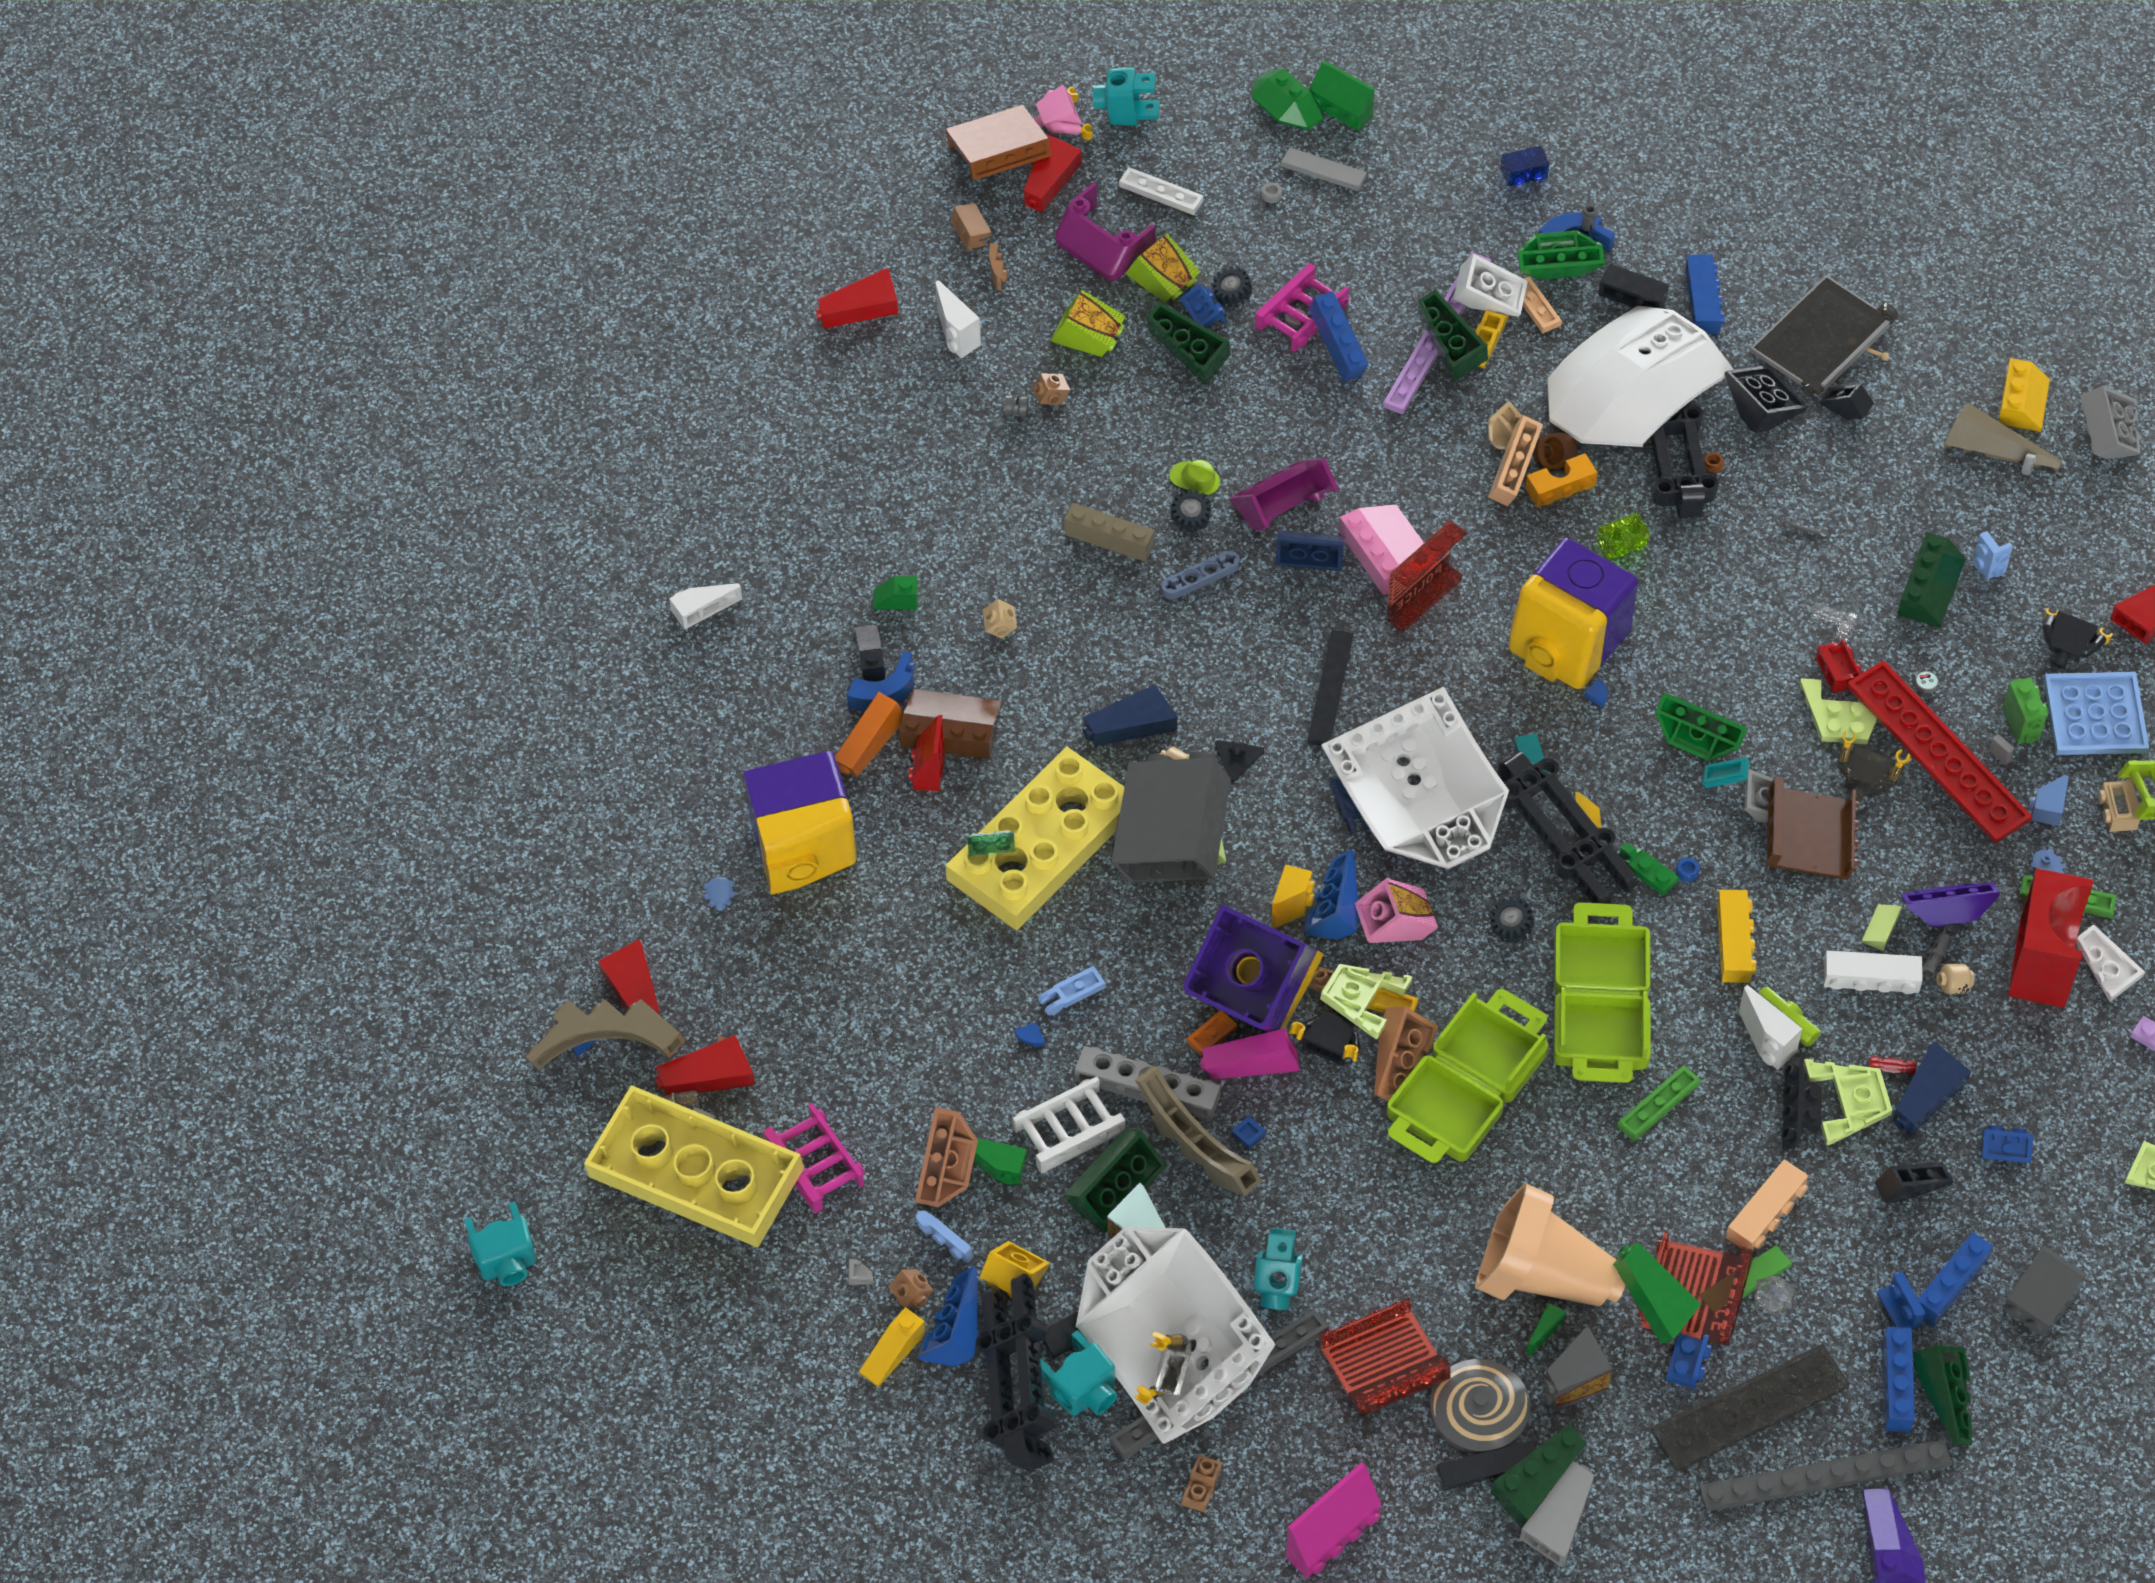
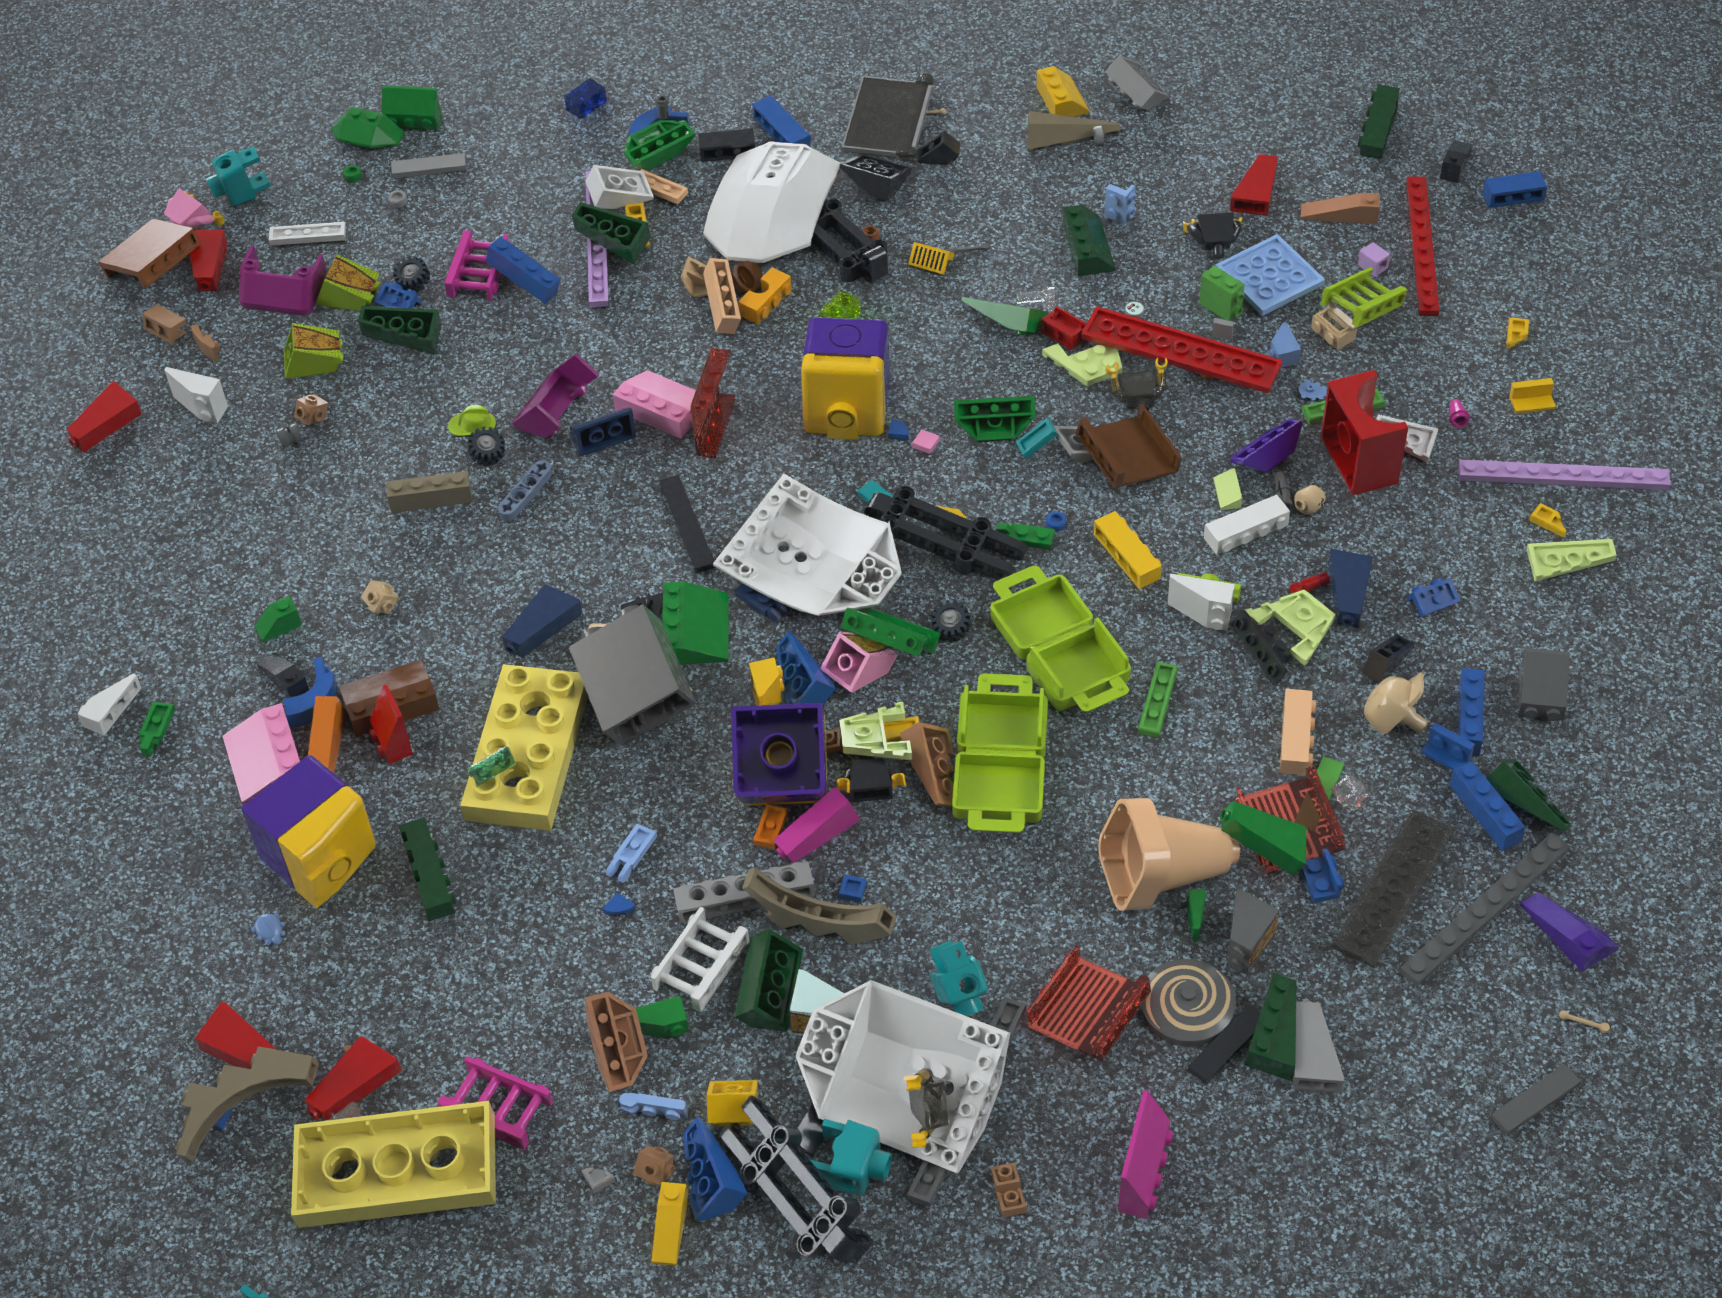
camera: 30 degrees left, 5 degrees down
(731, 645) = (155, 727): none -> green hinge
(808, 719) = (260, 750): none -> bright pink slope
(883, 911) = (427, 869): none -> dark green wedge
(1244, 142) = (352, 173): none -> green tile
(1271, 795) = (696, 622): none -> green slope
(1444, 900) = (890, 630): none -> green fence
(1617, 719) = (925, 441): none -> bright pink tile
(1757, 519) = (929, 258): none -> yellow panel
(1791, 626) = (1010, 316): none -> wedge
(1876, 1230) = (1393, 703): none -> tan piece

